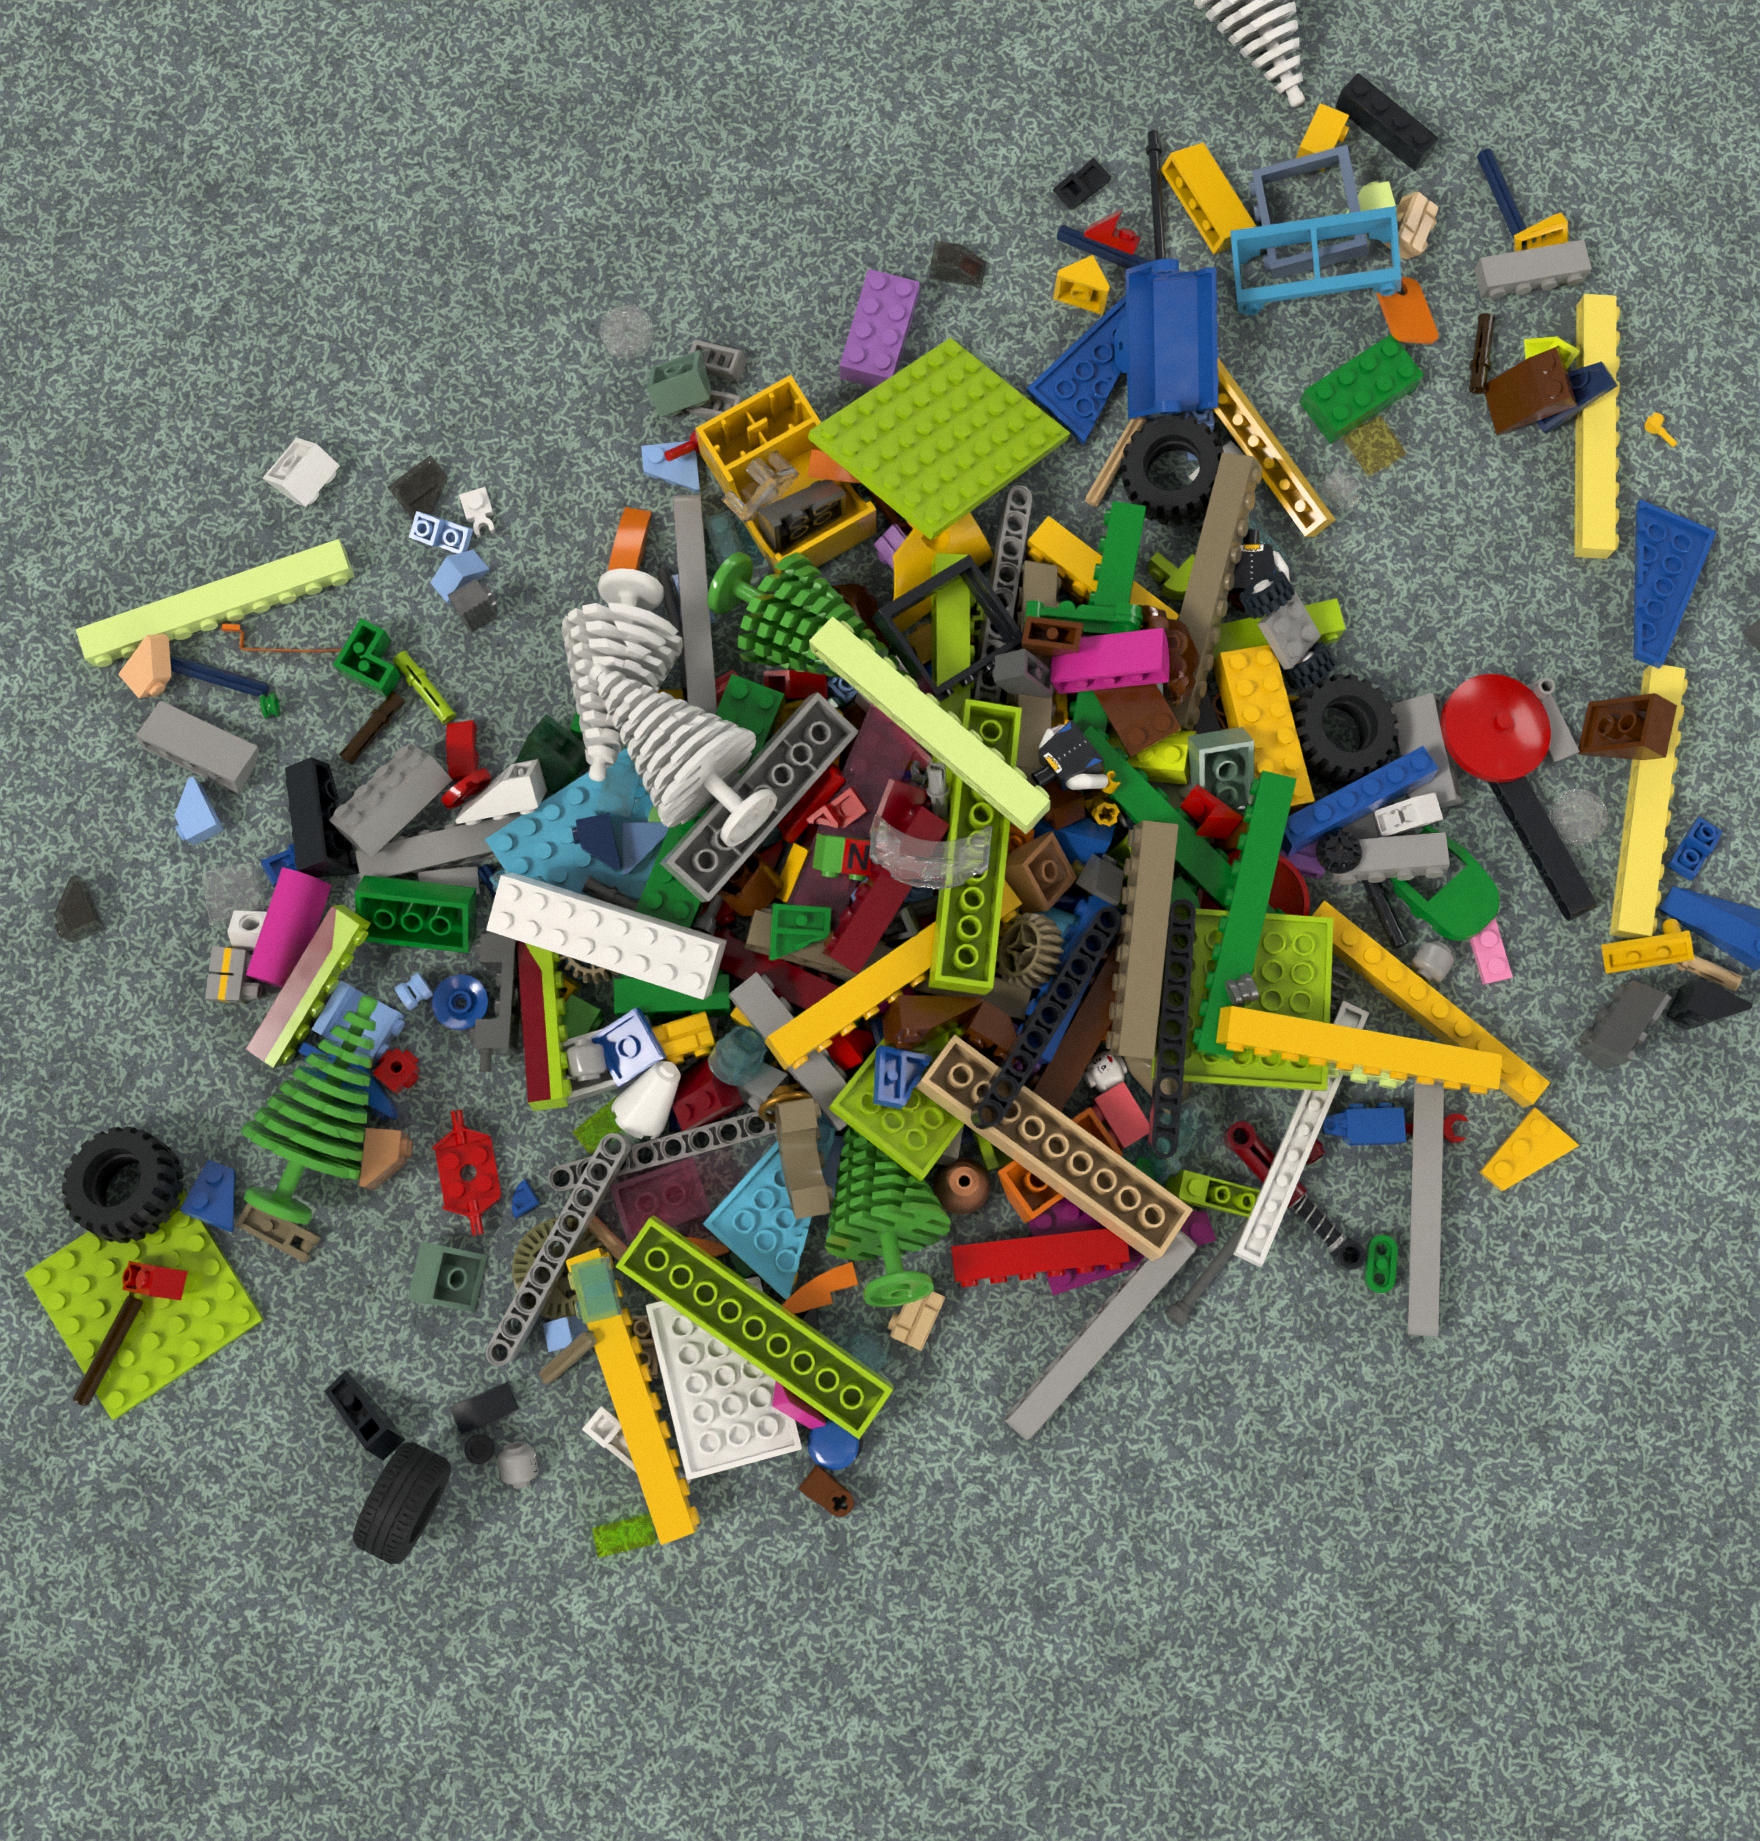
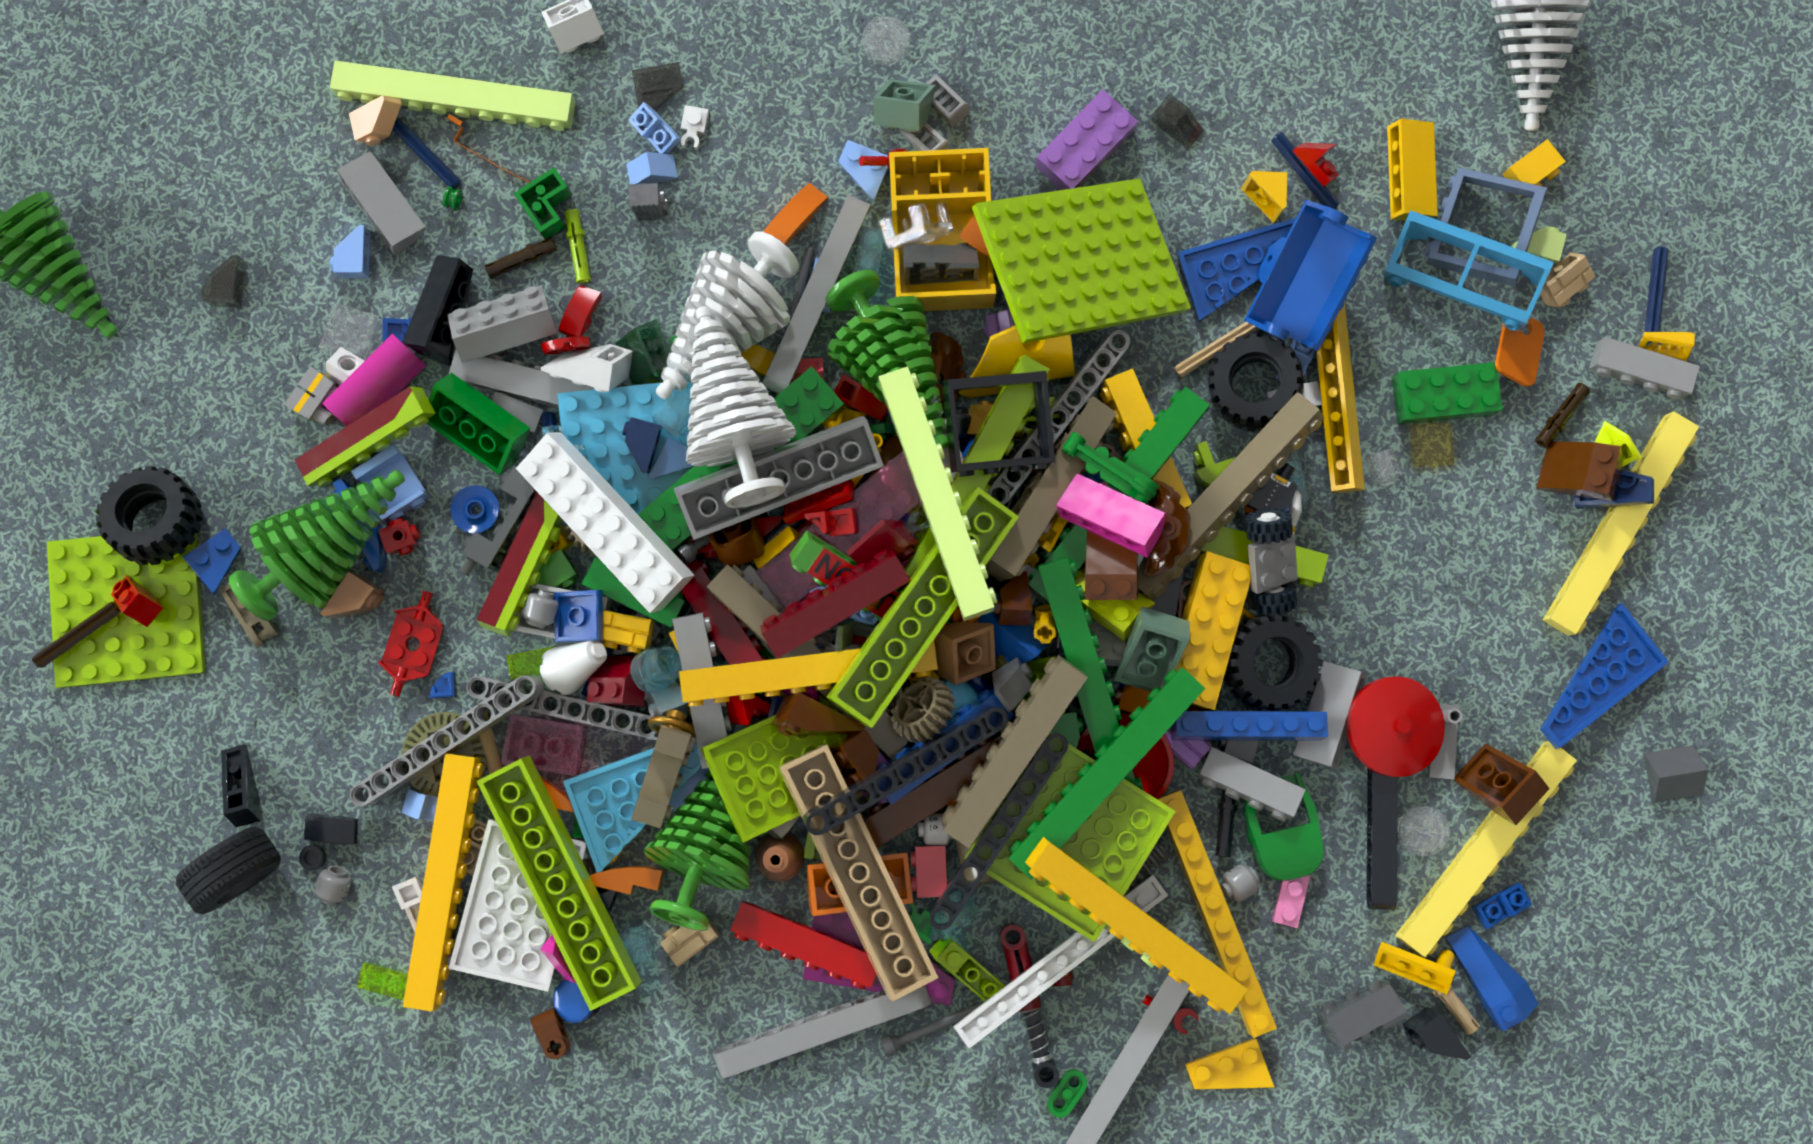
camera: 30 degrees right, 5 degrees up
(418, 986) = (444, 481): light blue wheel -> none
(447, 1277) = (355, 715): sand green slope -> none
(568, 1357) = (410, 826): dark tan axle -> none
(595, 1290) = (453, 790): clear light blue brick -> none
(608, 894) = (629, 489): dark grey pin -> none
(796, 928) = (750, 596): green wing -> none
(897, 1075) = (767, 751): blue wing -> none
(929, 862) = (874, 601): clear windscreen -> none
(938, 789) = (917, 547): light grey axle -> none
(1022, 674) = (1036, 489): dark grey slope -> none
(1051, 636) = (1074, 471): reddish brown slope -> none
(1071, 761) = (1034, 579): black torso -> none
(1082, 185) = (1317, 106): black slope -> none
(1154, 150) = (1389, 108): black bar -> none
(1215, 817) = (1127, 679): red slope -> none
(1241, 990) = (1066, 832): dark grey wheel -> none
(1329, 859) = (1216, 770): black gear -> none
(1367, 1126) = (1117, 982): blue hinge -> none
(1386, 122) = (1594, 182): black brick -> none
(1407, 815) = (1285, 758): white brick -> none
(1654, 425) = (1669, 547): yellow hand -> none

